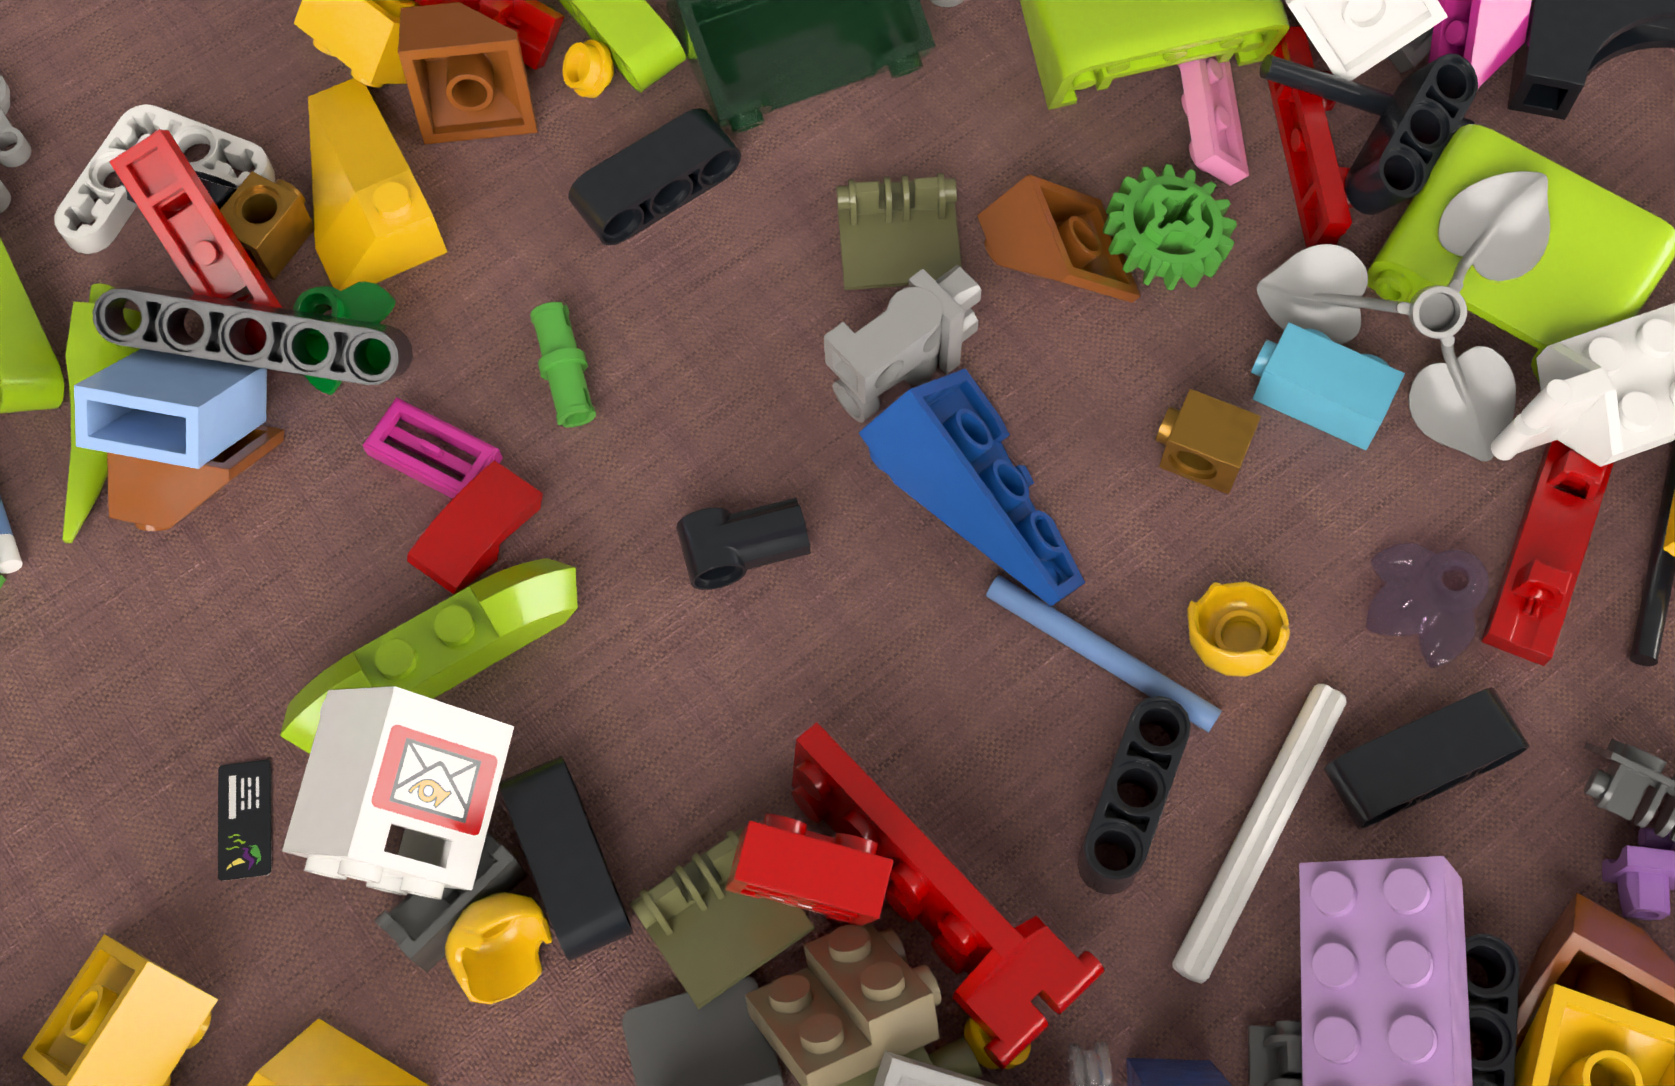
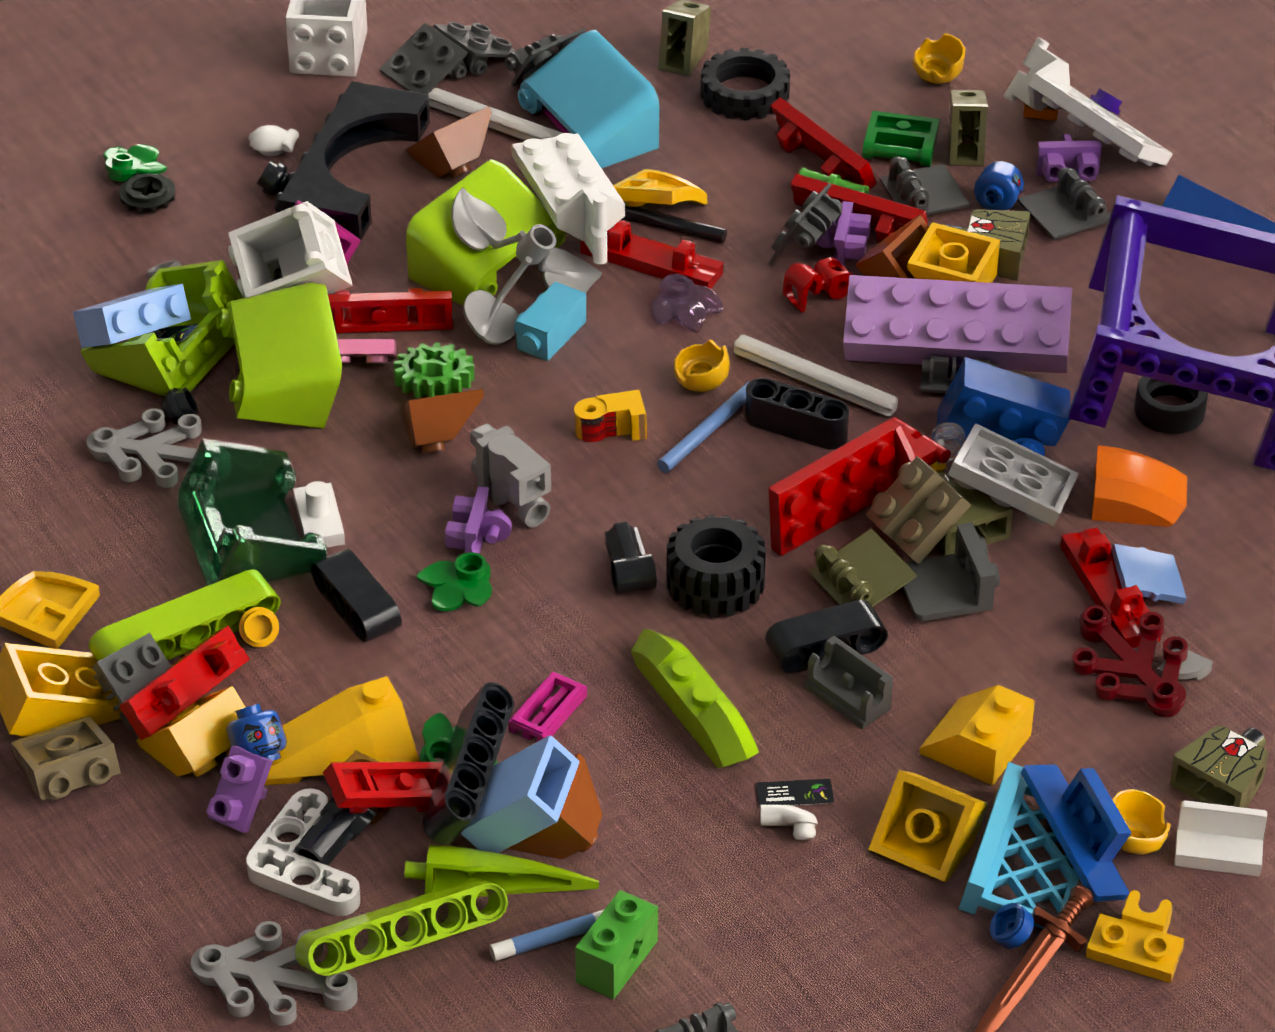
camera: 90 degrees left, 25 degrees down
(169, 814) = (790, 815): none -> white arm
(246, 73) = (239, 789): none -> medium lavender hips
(324, 73) = (258, 732): none -> blue head
(401, 763) = (795, 671): white container -> none
(464, 74) = (263, 668): dark orange slope -> none
(472, 526) = (613, 676): red slope -> none
(497, 946) = (876, 650): yellow hair -> none
(562, 364) = (494, 640): bright green pin -> none
(691, 308) = (458, 581): none -> green plate
(707, 619) = (715, 565): none -> black tyre
(804, 319) = (476, 523): none -> medium lavender hips
(810, 870) = (852, 494): red piece -> none
(839, 117) = (319, 512): none -> white tile
(897, 230) = (412, 490): olive hinge -> none
(950, 457) = (595, 465): blue wedge -> none
(1100, 497) = (611, 416): none -> yellow leg
(1206, 440) = (582, 368): pearl gold brick -> none
(1328, 86) = (361, 278): black bar -> none
(1411, 134) = (397, 257): black beam -> none
(1426, 757) = (779, 310): black beam -> none
(1537, 850) = (826, 276): none -> red leg

